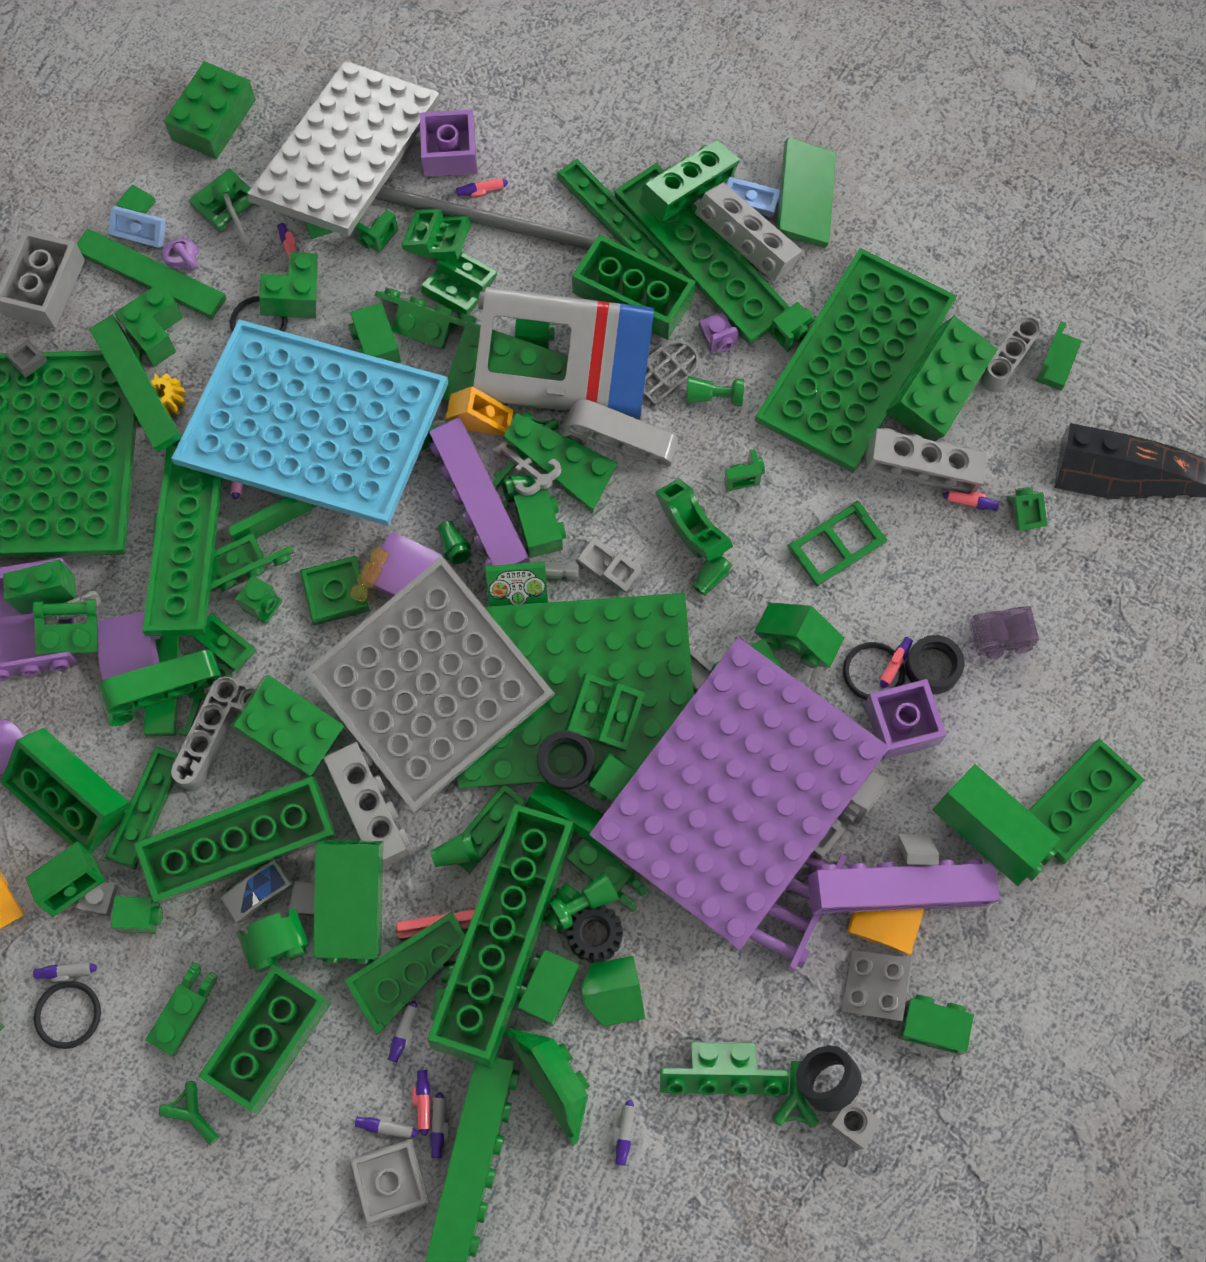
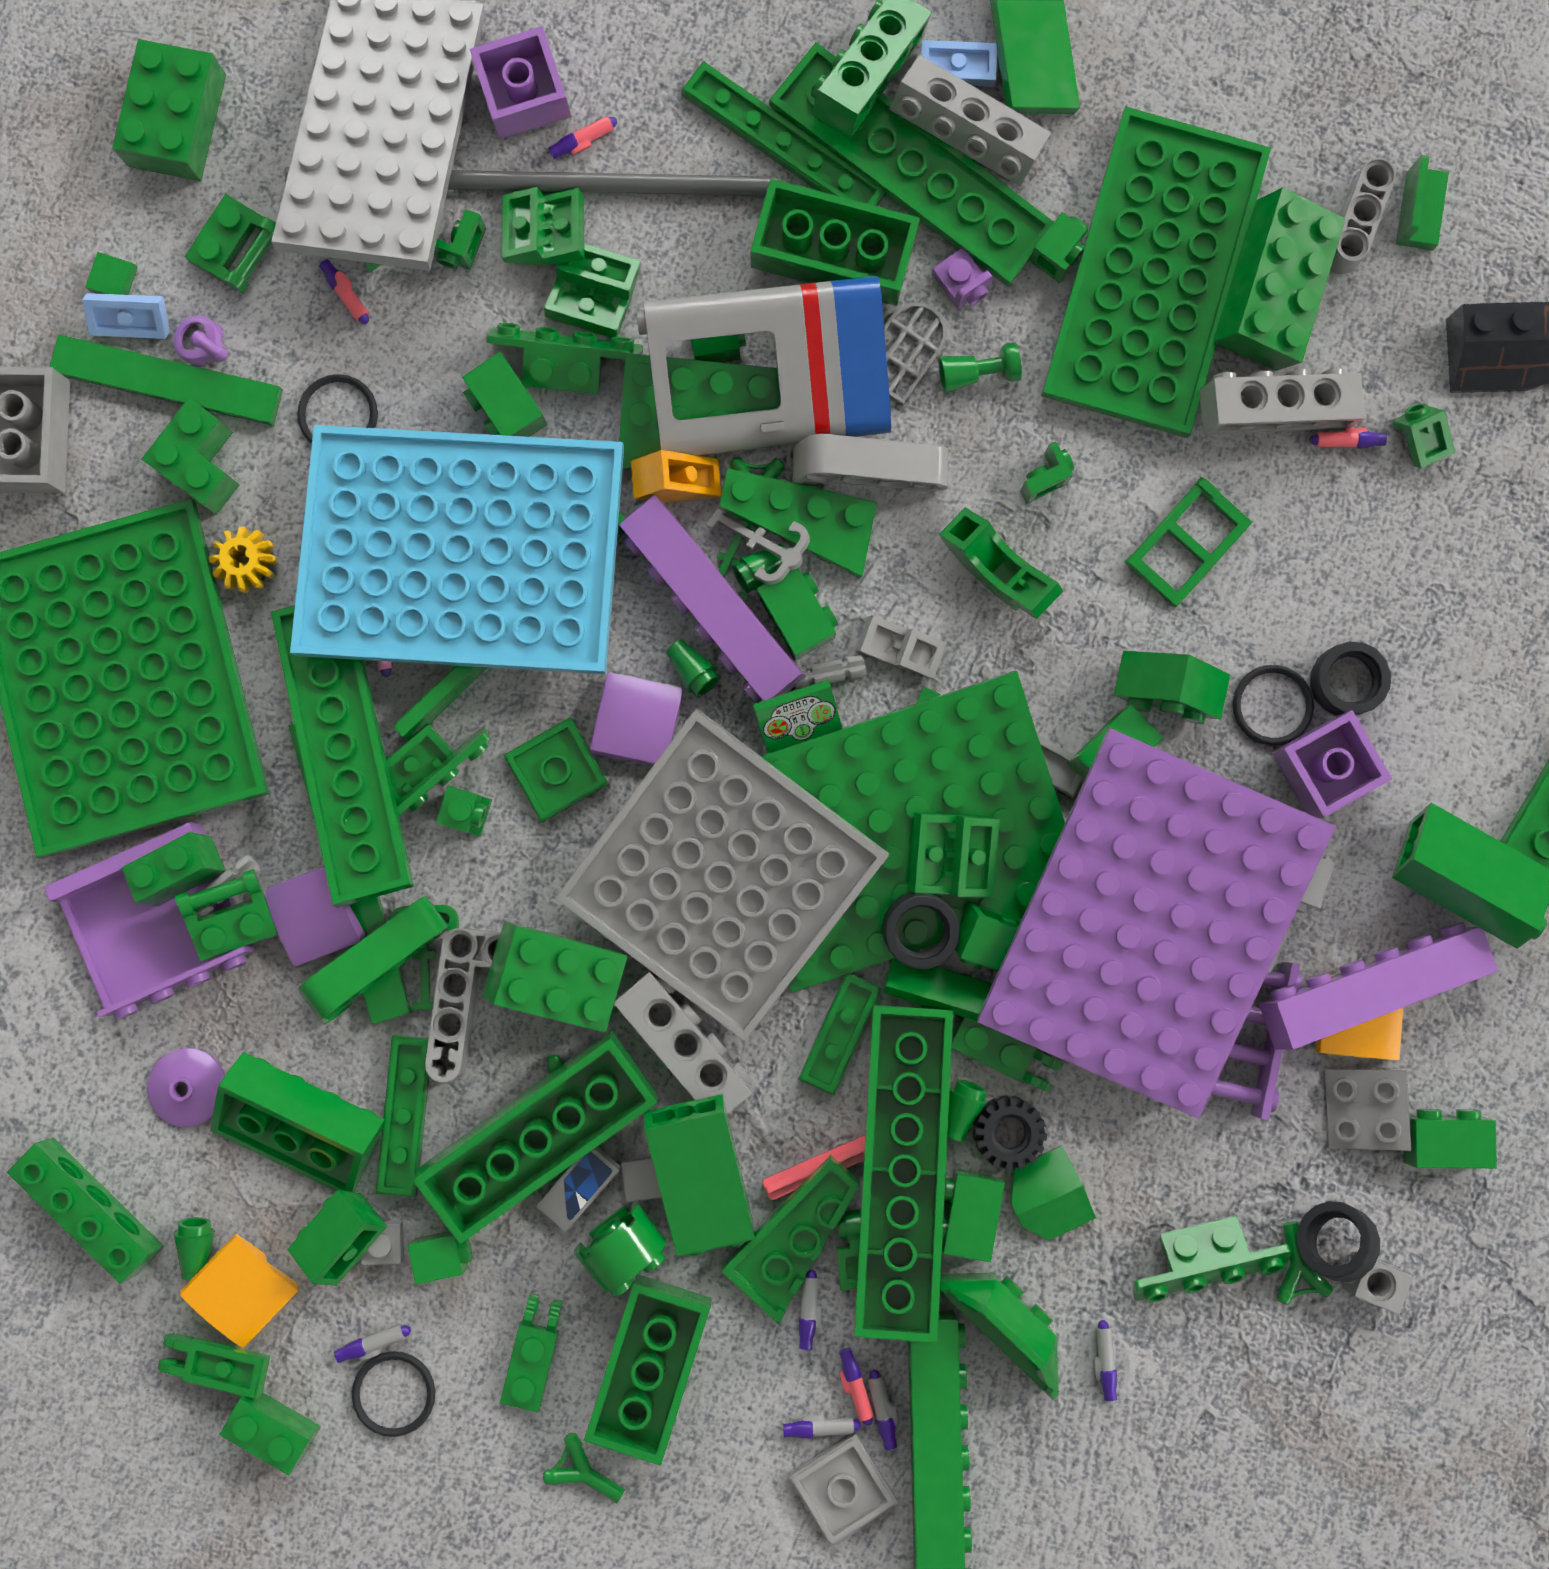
camera: 15 degrees left, 15 degrees up
(26, 358) = (42, 551): dark grey tile -> none
(135, 383) = (204, 554): green tile -> none
(224, 193) = (233, 239): hinge -> none
(225, 643) = (441, 879): green plate -> none
(293, 293) = (378, 365): green brick -> none
(369, 574) = (598, 743): clear yellow axle -> none
(455, 851) = (813, 1078): green cone -> none
(594, 895) = (1001, 1094): green piece -> none
(711, 574) = (1038, 631): green cone -> none
(895, 663) = (1303, 681): coral piece -> none
(918, 849) = (1385, 932): light grey tile -> none
(1004, 631) = (1429, 612): clear purple brick -> none

